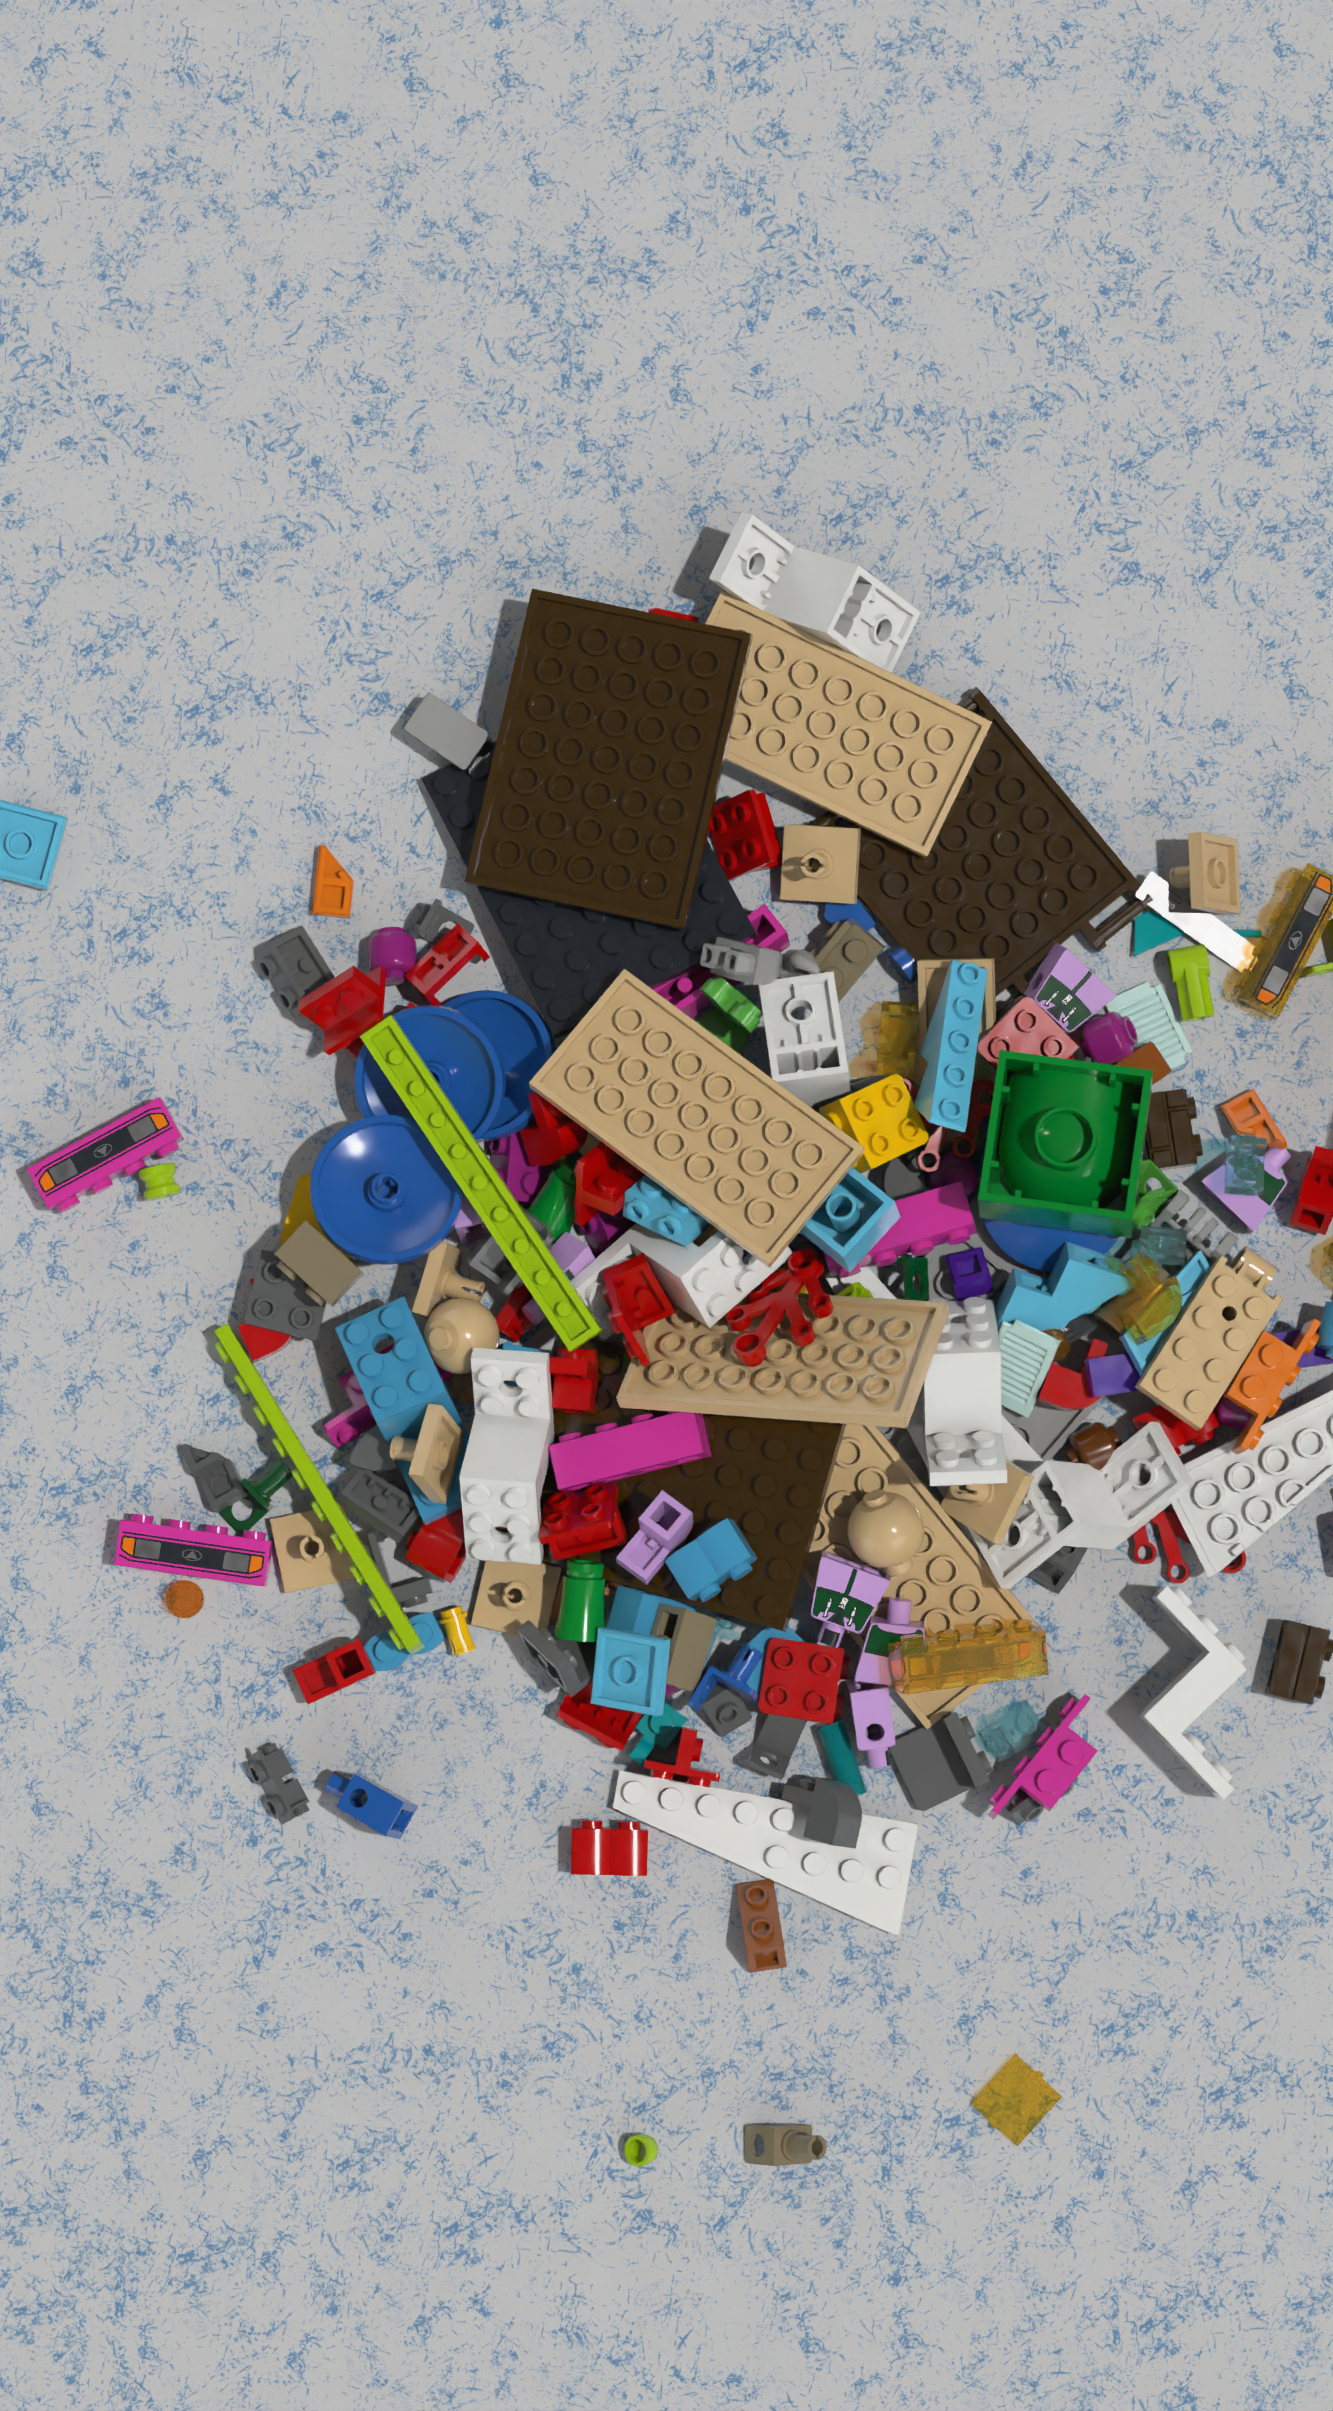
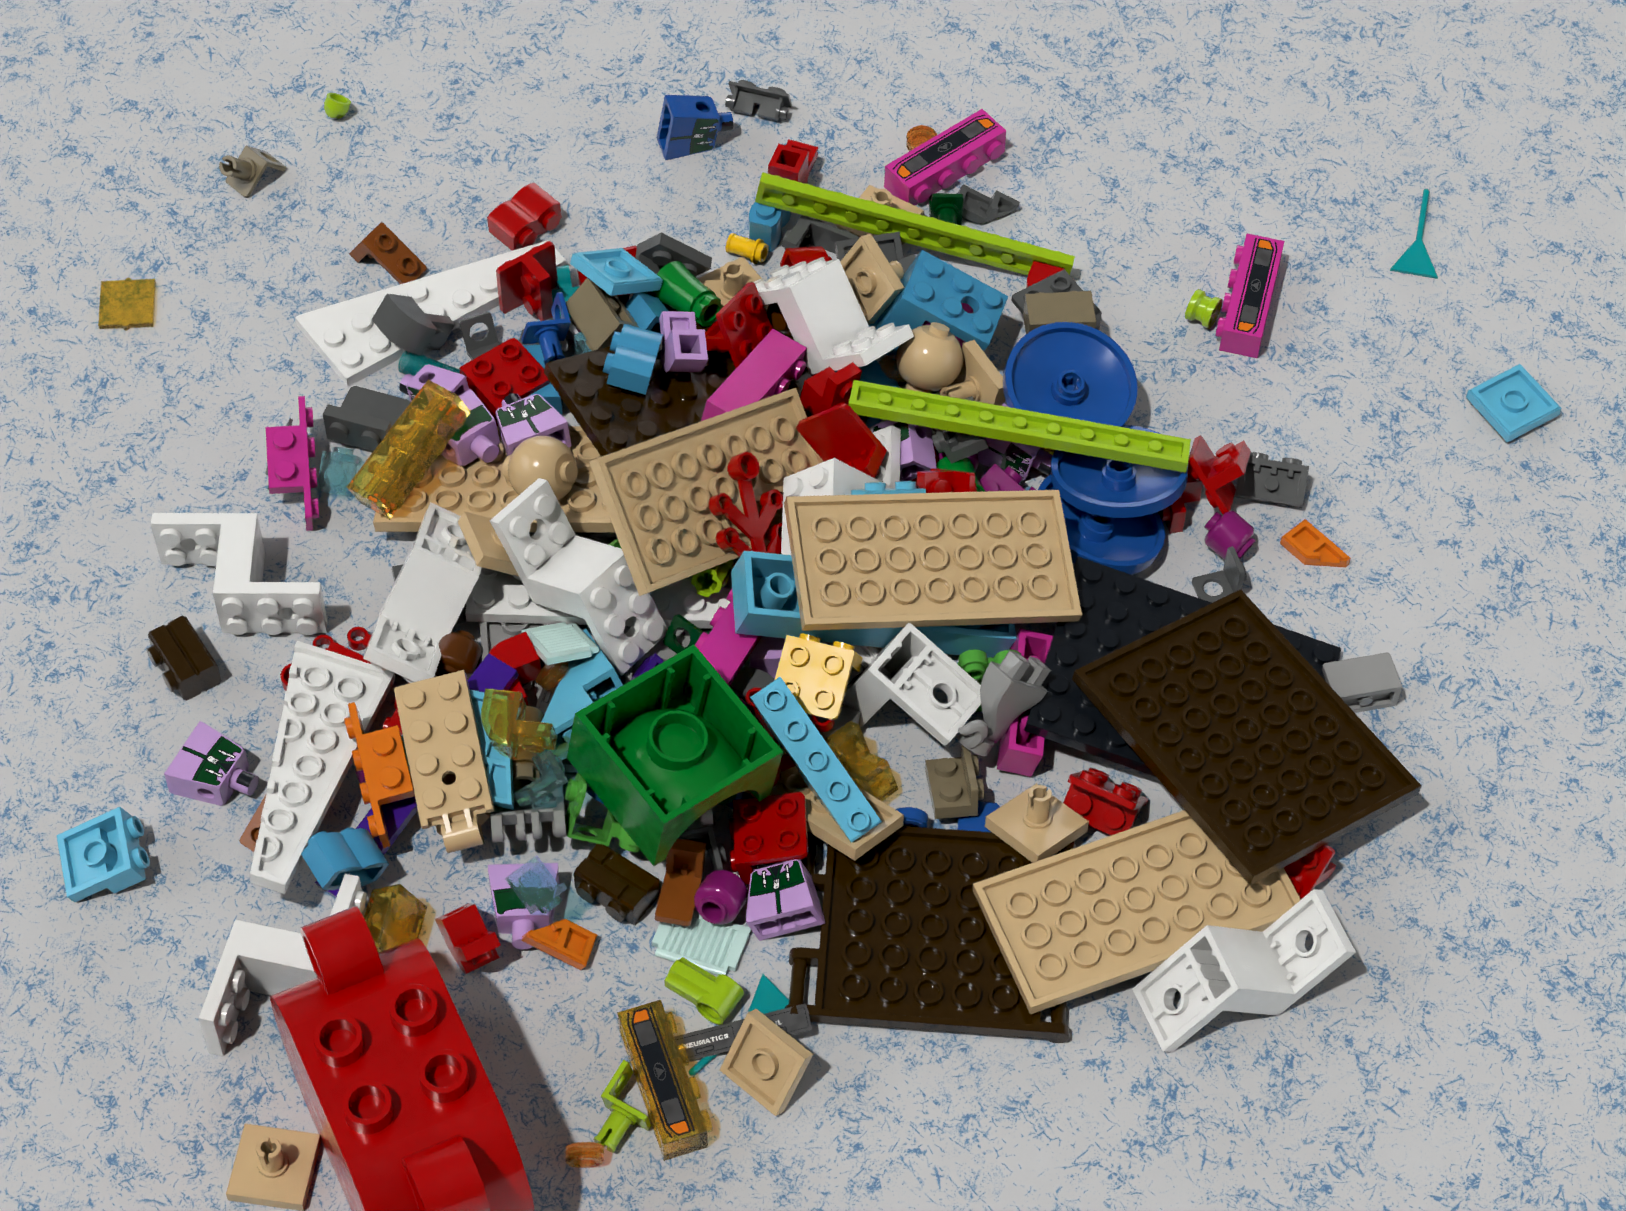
camera: 130 degrees right, 30 degrees down
(444, 962) = (1194, 554): red hinge -> none

